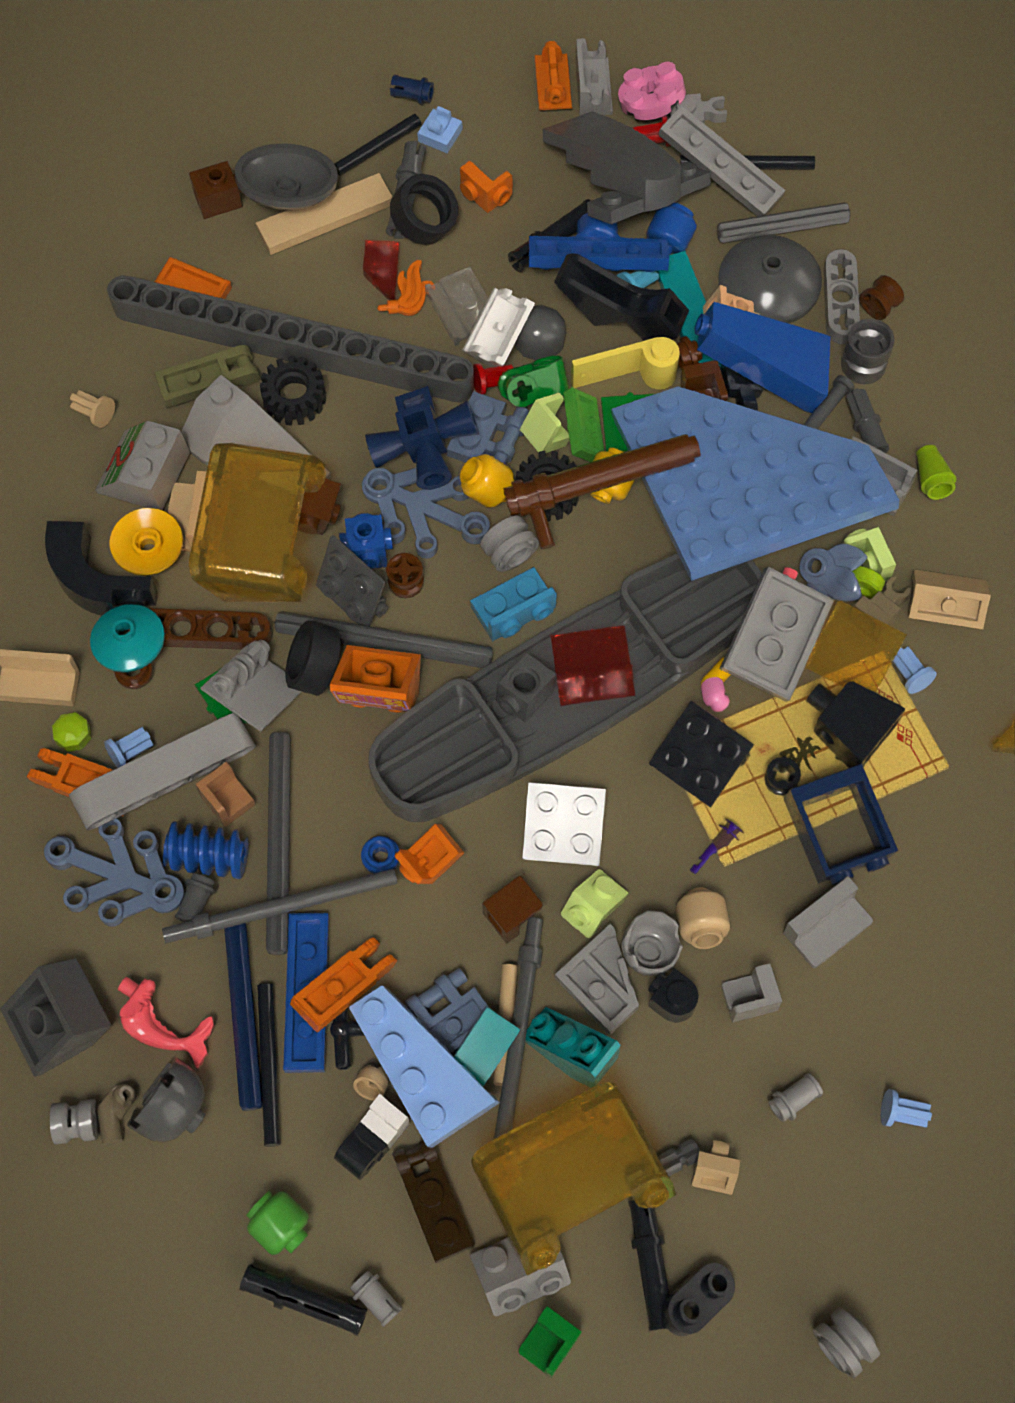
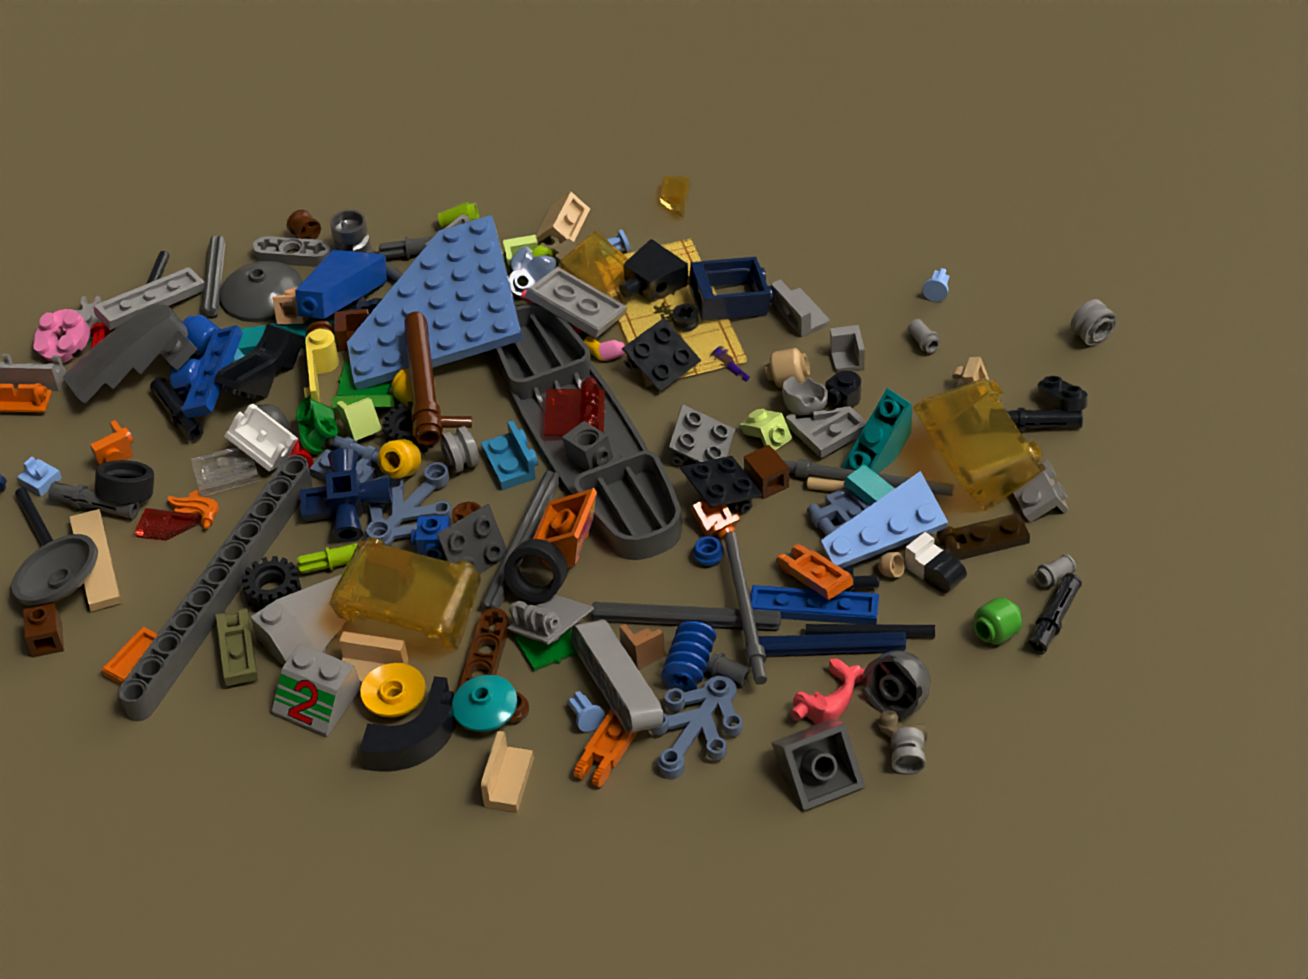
camera: 80 degrees left, 20 degrees down
(71, 732) = (561, 753): lime tile -> none
(98, 409) = (242, 730): tan piece -> none
(338, 441) = (326, 559): none -> lime axle
(478, 853) = (722, 483): none -> black hinge
(549, 1342) = (1089, 474): green panel -> none

